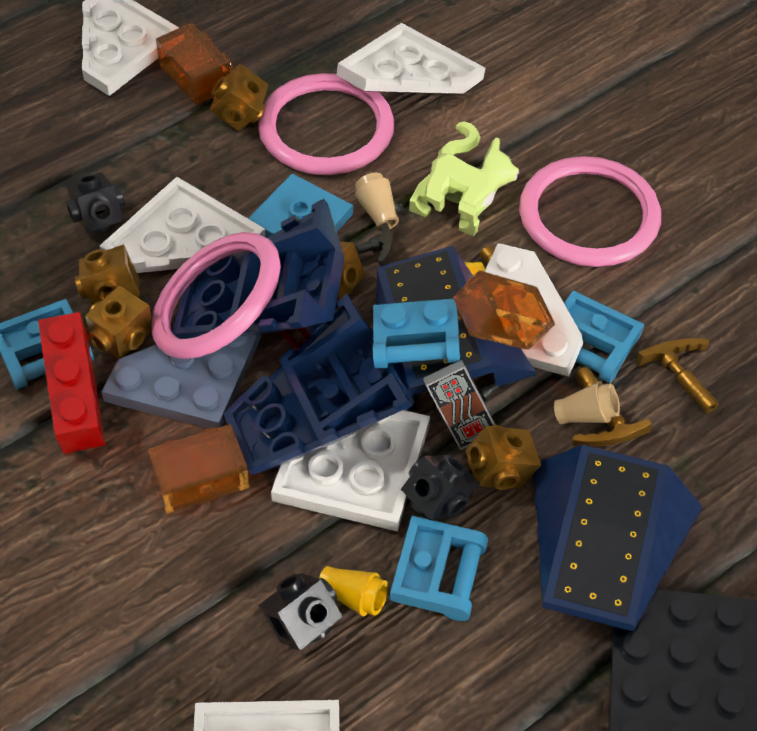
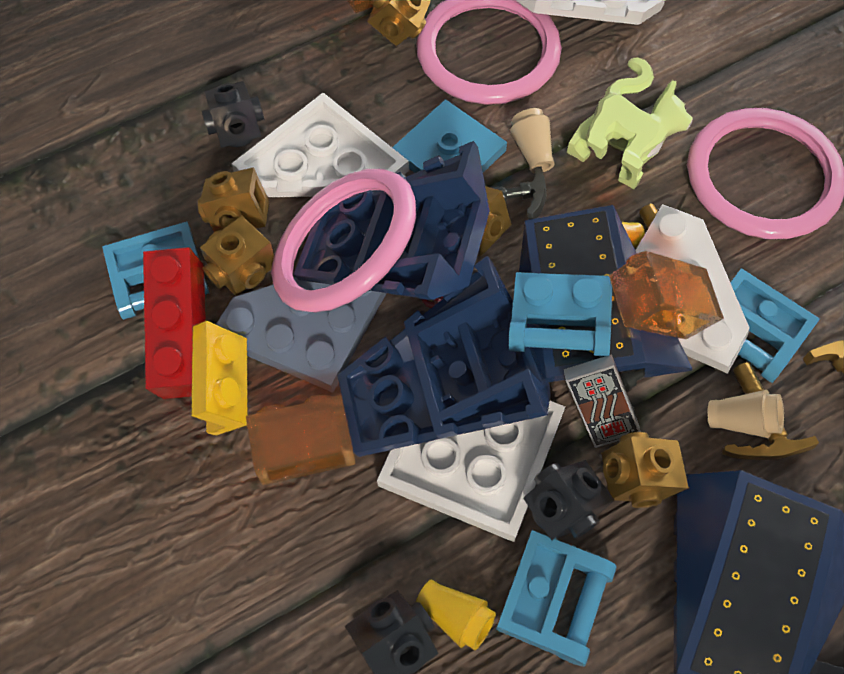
camera: 10 degrees right, 10 degrees up
(119, 424) = (219, 378): none -> yellow bracket

